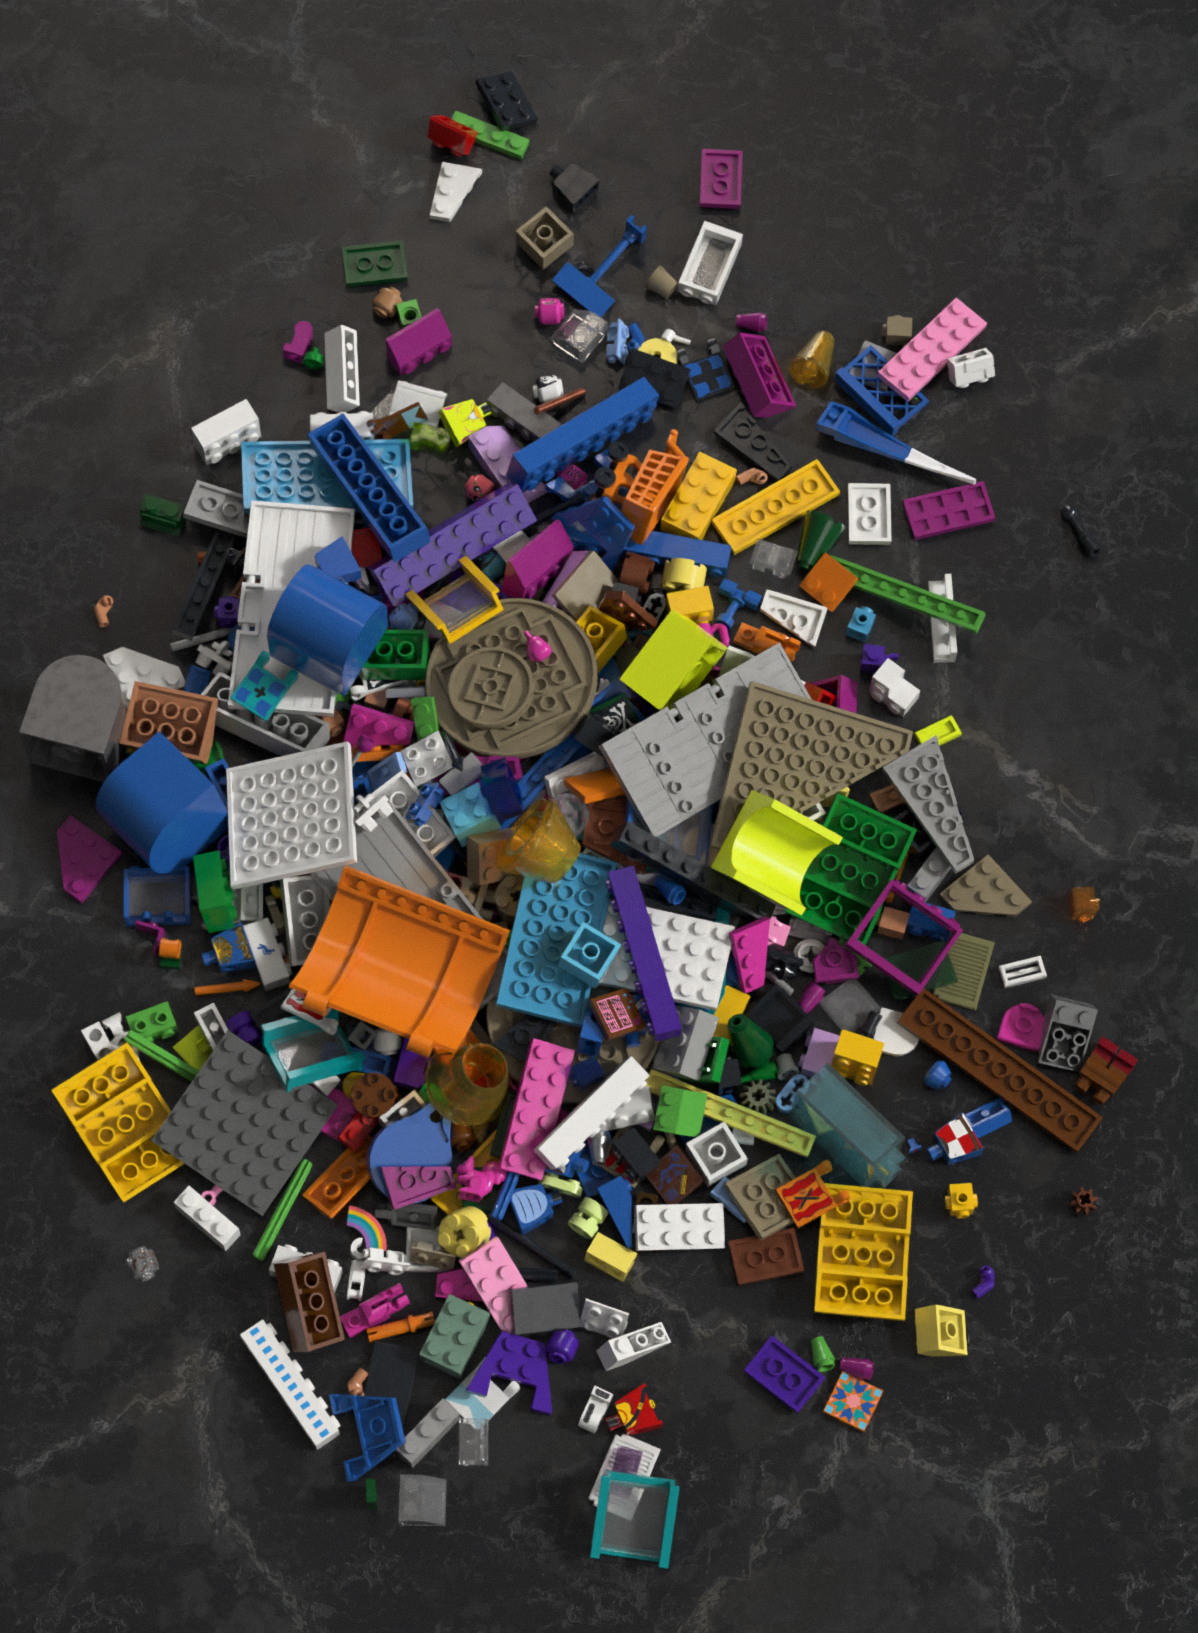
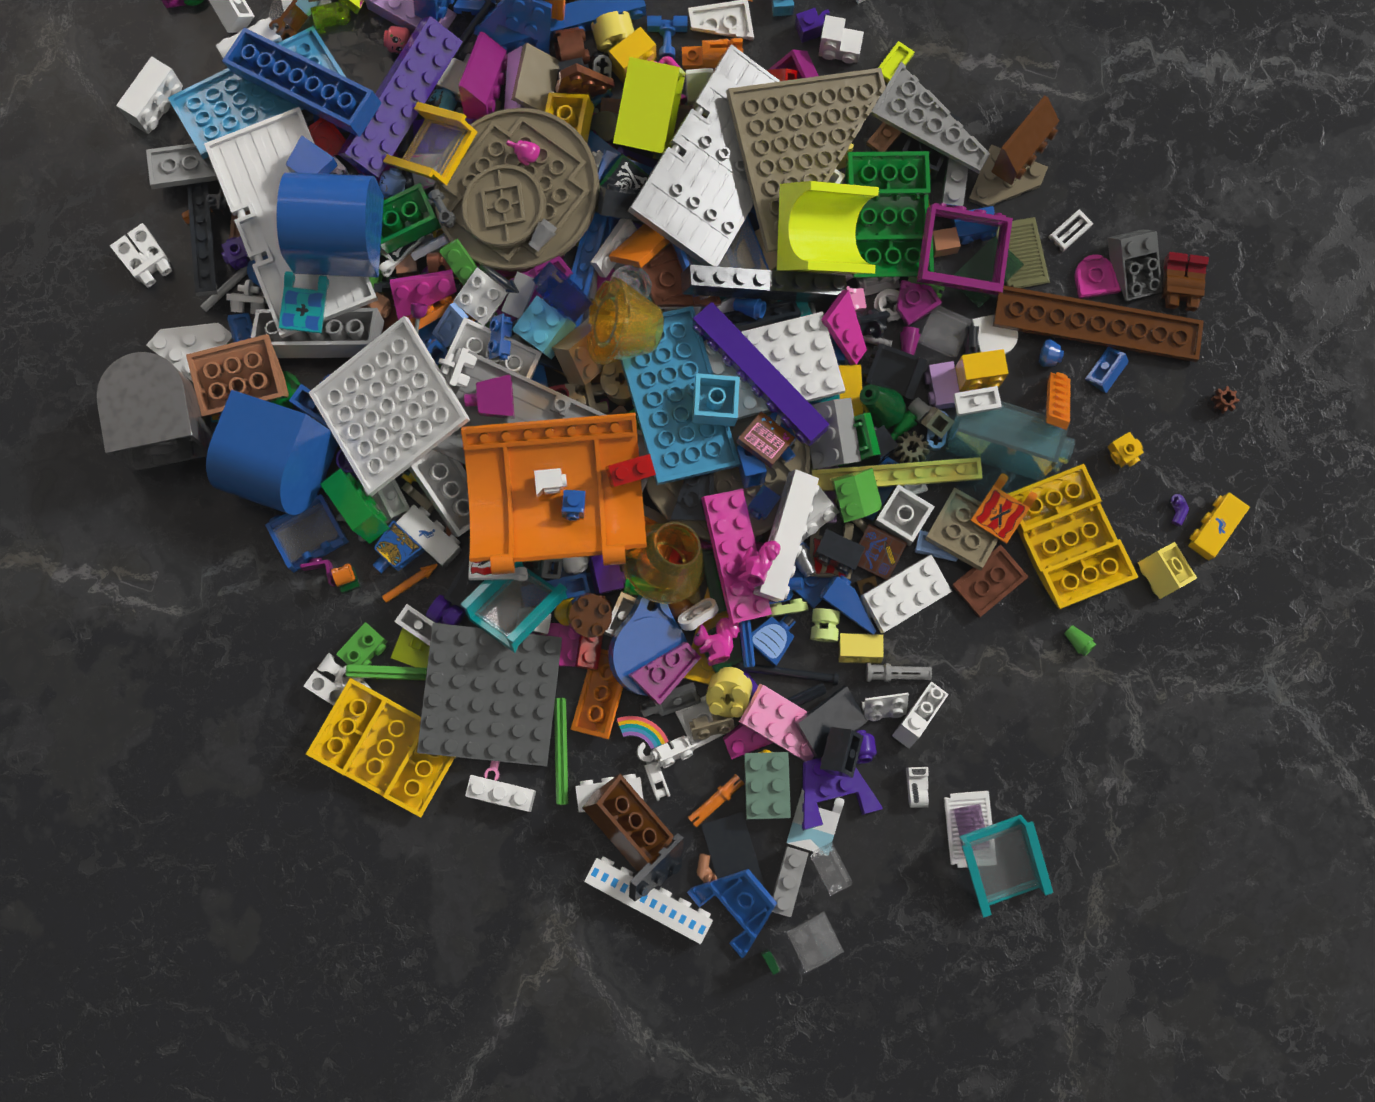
camera: 25 degrees left, 10 degrees up
(83, 858) = (224, 531): magenta plate -> none
(102, 609) = (123, 305): nougat arm -> none
(142, 1263) = (466, 862): clear head -> none
(145, 579) = (146, 261): none -> white hips
(162, 515) = (132, 196): dark green window -> none
(313, 1359) = (655, 874): none -> black wing
(374, 1311) = (686, 800): dark pink plate -> none
(389, 854) = (493, 398): none -> magenta torso
(399, 953) = (549, 481): none -> white window
(410, 985) = (573, 504): none -> blue bracket
(433, 672) = (445, 217): none -> dark grey bar
(476, 1145) = (698, 614): none -> white plate
(477, 980) = (630, 470): none -> red brick
(513, 729) = (542, 234): none -> light grey cone
(538, 1336) = (841, 752): none -> black brick
(548, 1122) = (757, 564): none -> dark pink animal
(621, 1294) = (886, 674): none -> light grey pin
(635, 1413) = (953, 771): torso -> none
(784, 1374) = (1058, 673): dark purple plate -> none
(791, 1082) = (937, 422): none -> dark tan brick
(827, 1073) = (977, 401): none -> white plate
(853, 1401) = (1125, 666): tile -> none
(857, 1367) = (1115, 636): magenta cone -> none
(912, 1116) = (1058, 400): none -> orange plate
(955, 1141) = (1094, 402): torso -> none
(1012, 1315) = (1218, 526): none -> yellow brick
(1018, 867) = (1026, 142): none -> reddish brown slope
(1083, 903) = (1091, 147): clear orange brick -> none

